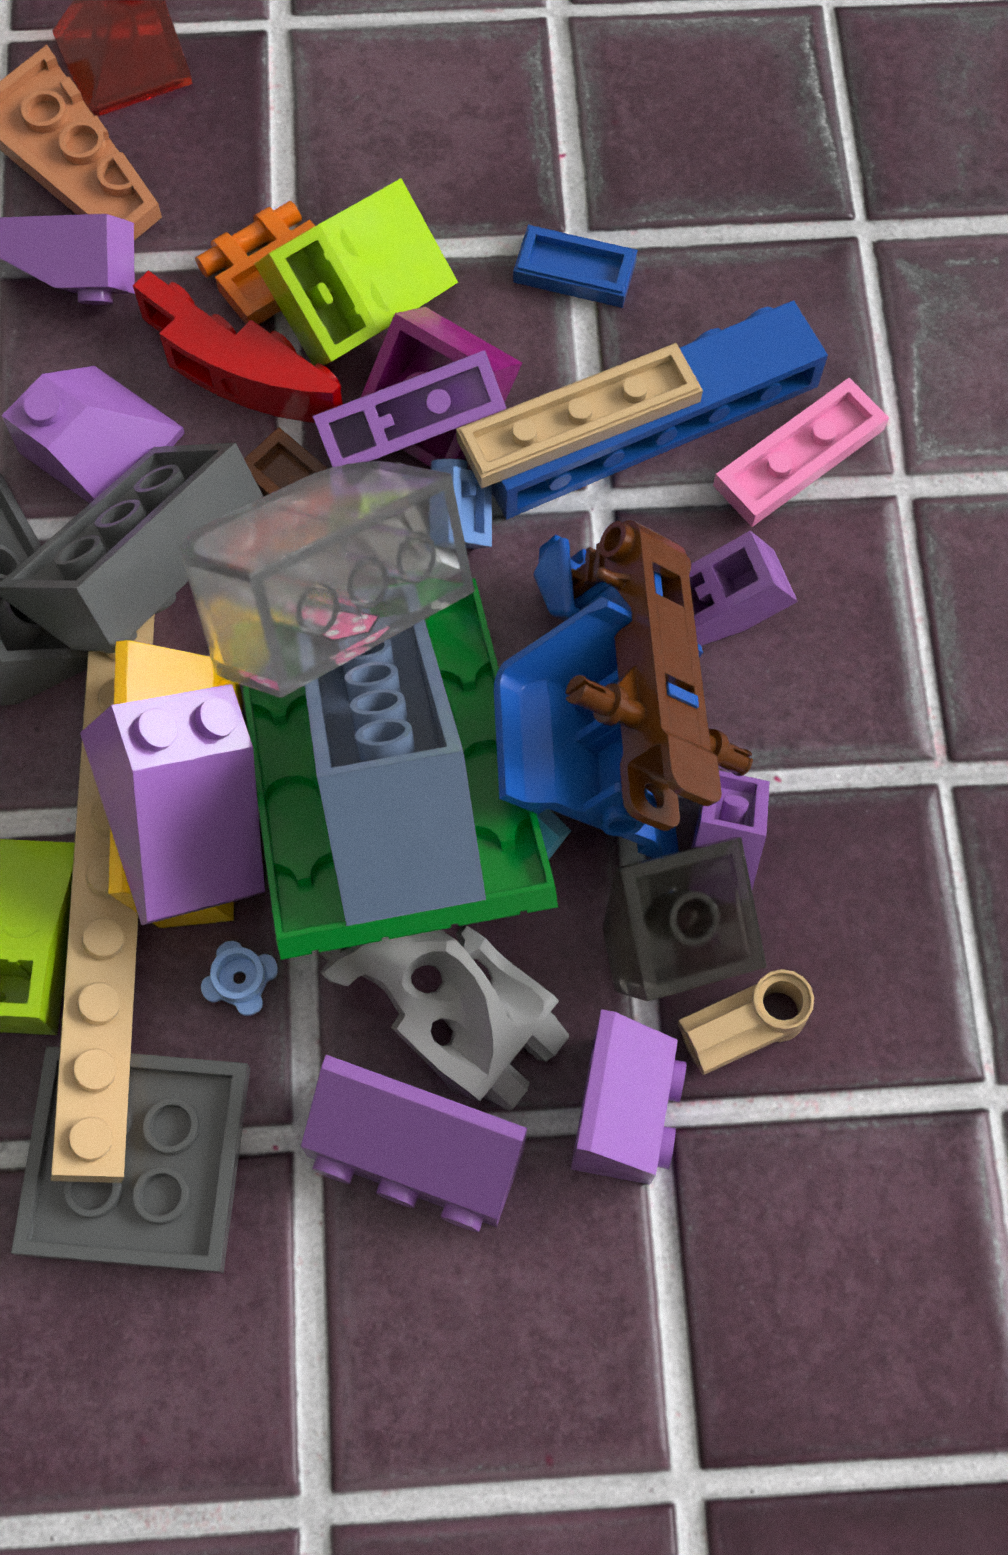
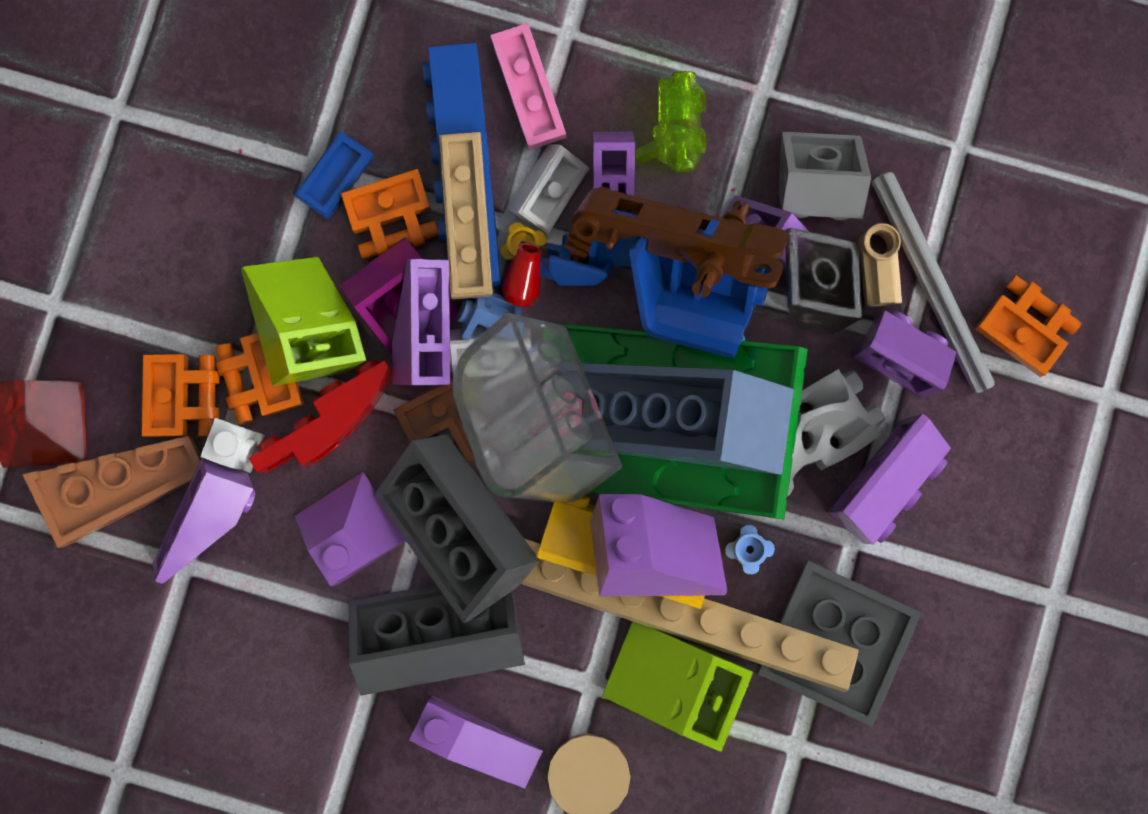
camera: 70 degrees left, 15 degrees up
(164, 246) = (231, 445): none -> white brick
(204, 168) = (166, 395): none -> orange plate
(526, 525) = (522, 279): none -> red cone
(561, 331) = (386, 203): none -> orange plate
(576, 505) = (519, 234): none -> yellow plate
(691, 525) = (548, 188): none -> white slope
(731, 1289) = (1021, 334): none -> orange plate
(754, 1121) = (933, 283): none -> light grey axle
(836, 656) = (679, 133): none -> clear neon green brick
(849, 886) = (823, 175): none -> light grey slope

